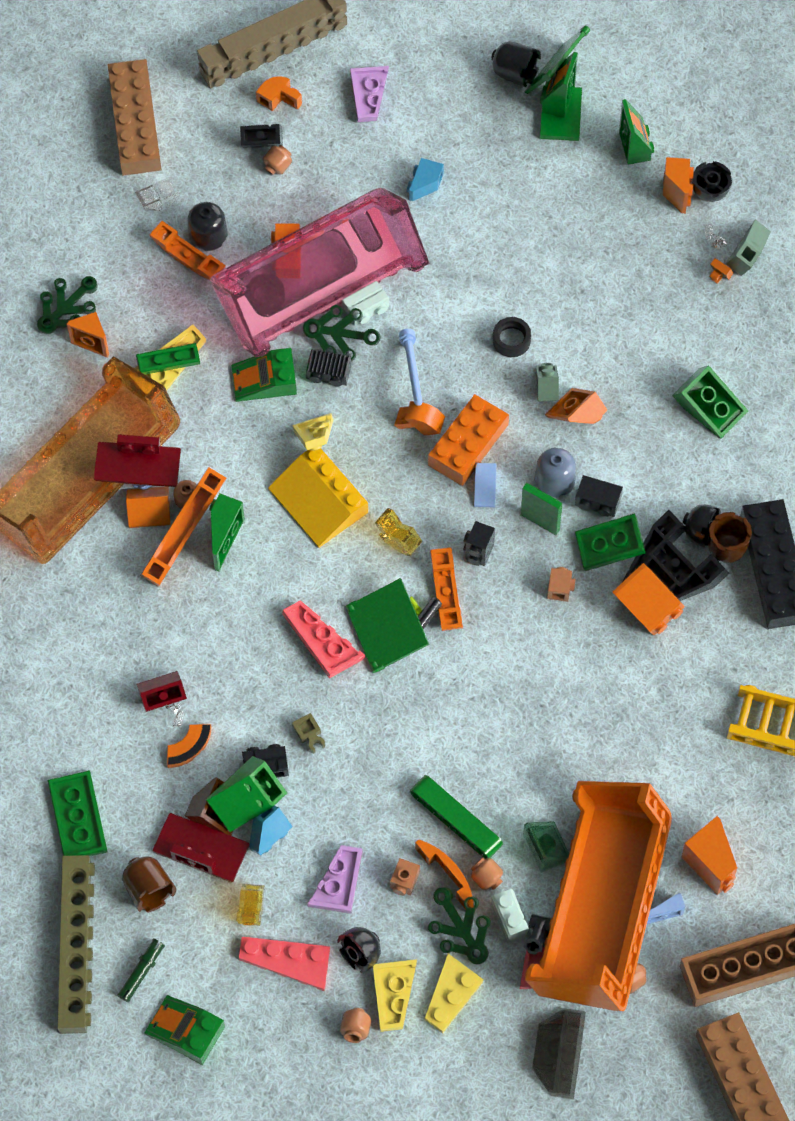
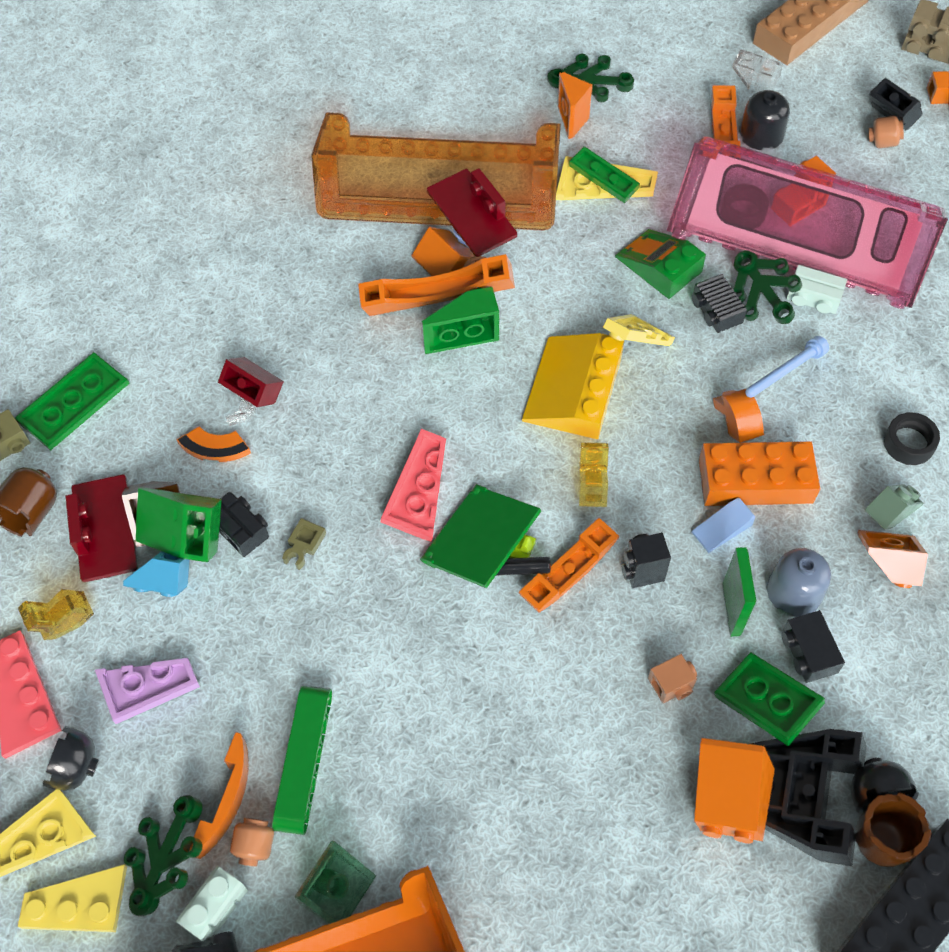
camera: 55 degrees right, 5 degrees down
(404, 877) = (190, 751): nougat brick -> none

